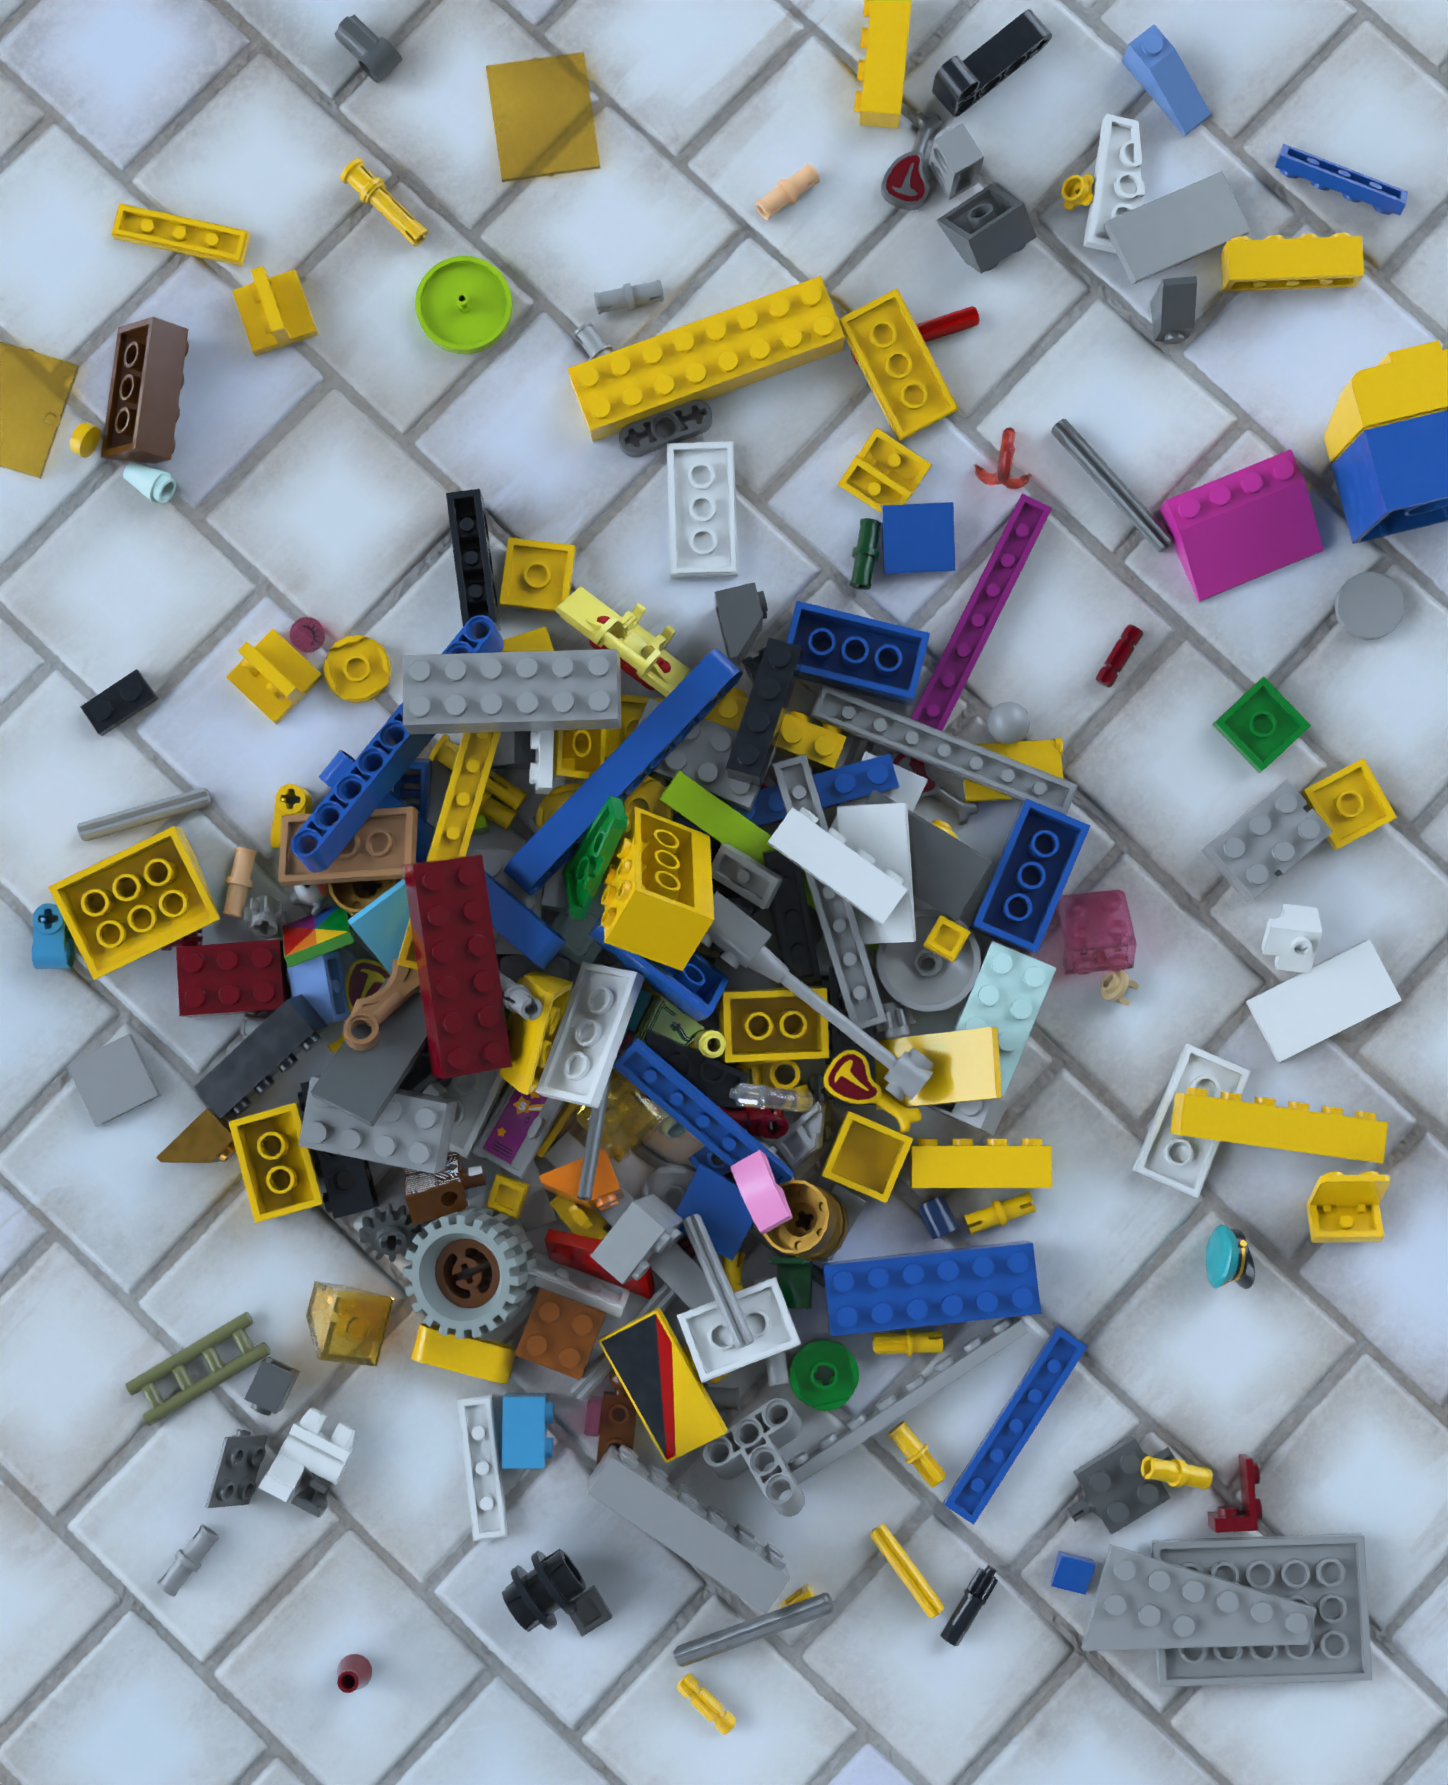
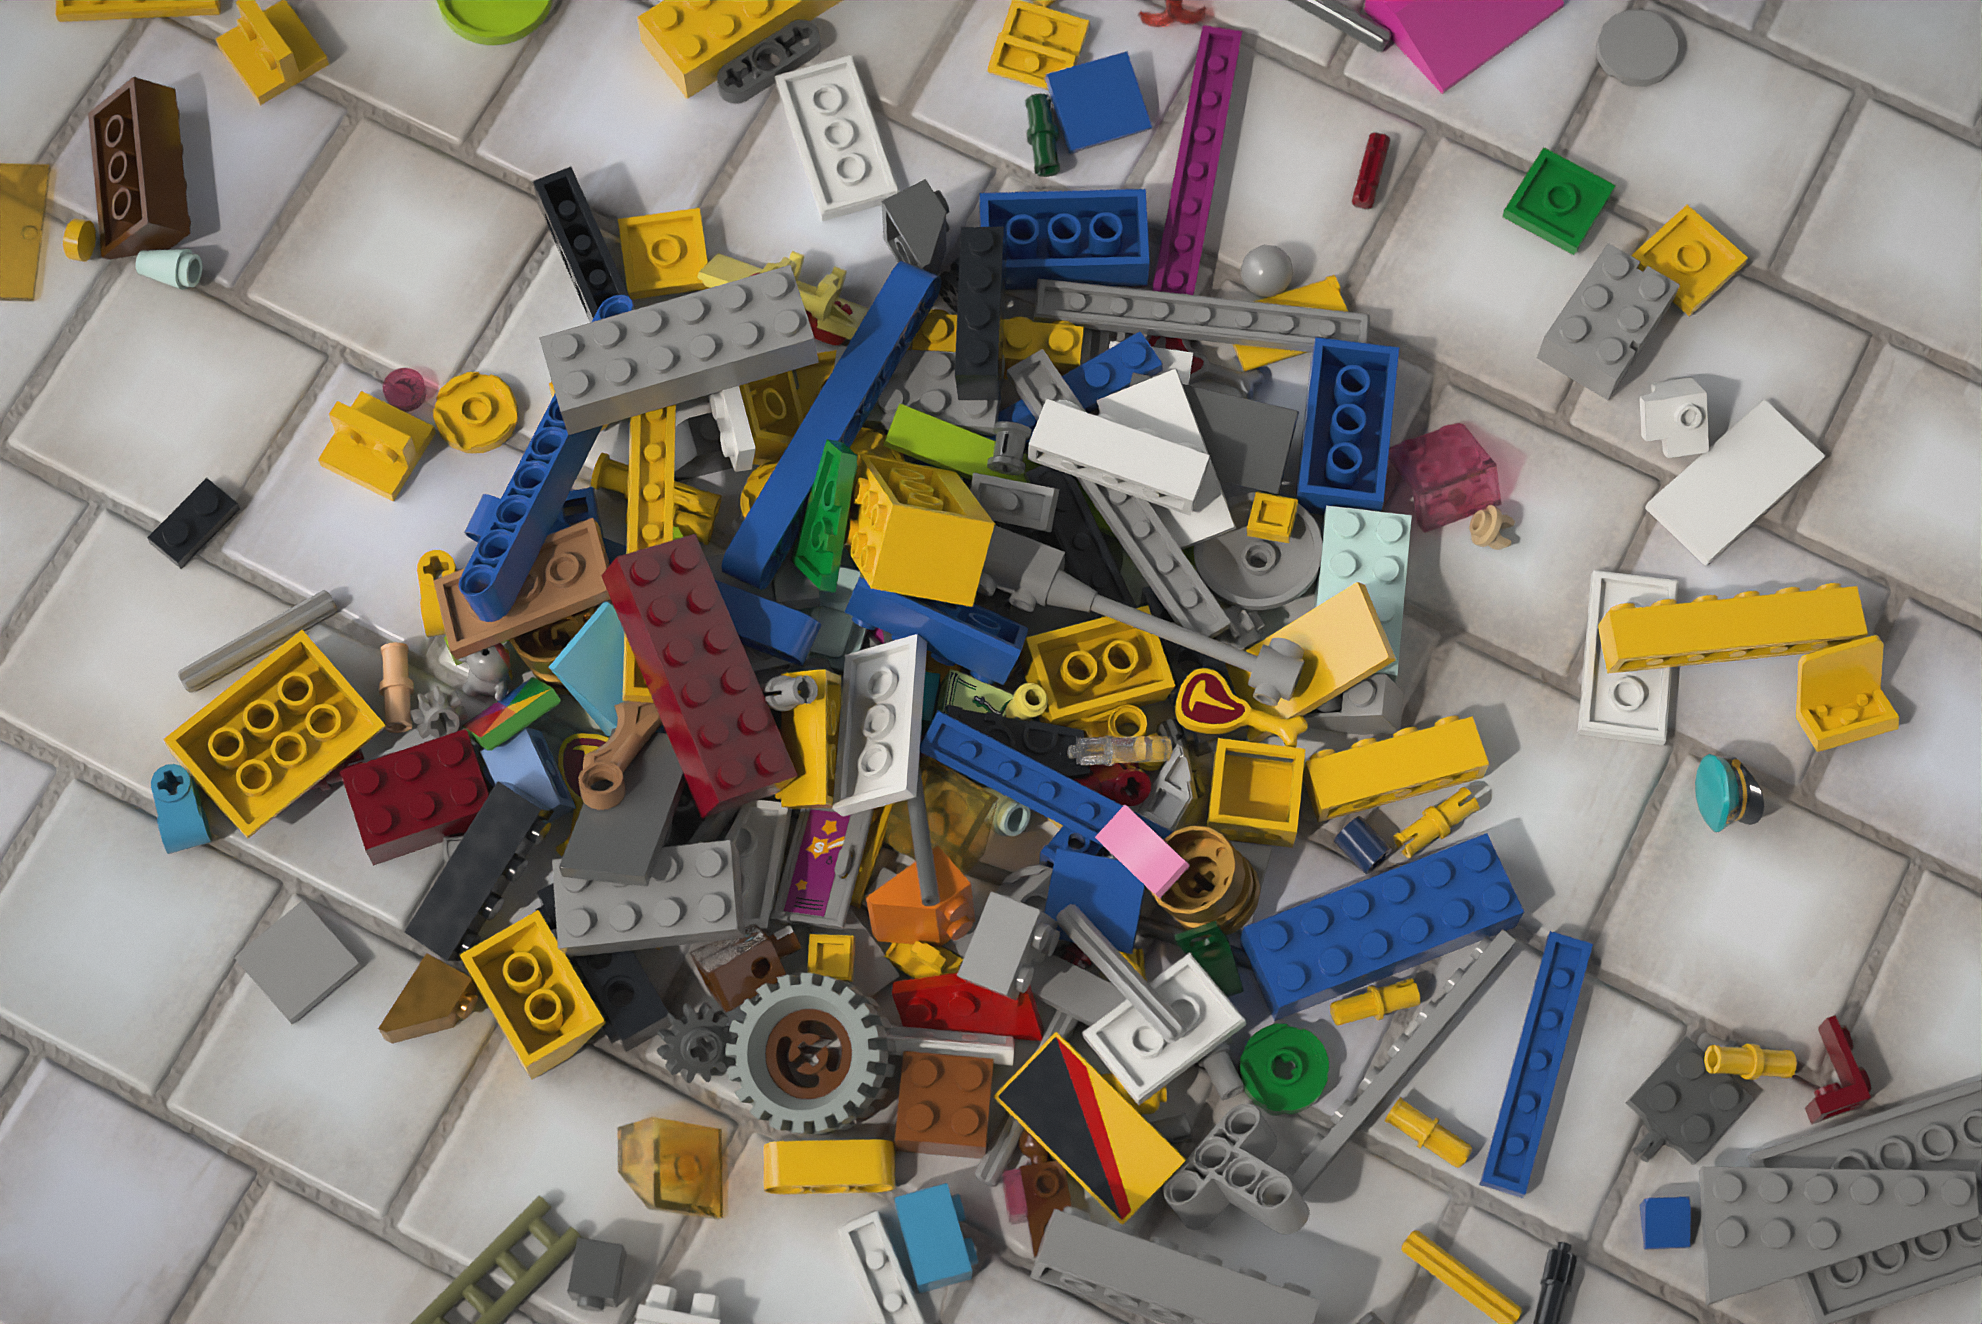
camera: 20 degrees left, 15 degrees down
(755, 831) = (1009, 448): none -> dark grey bush

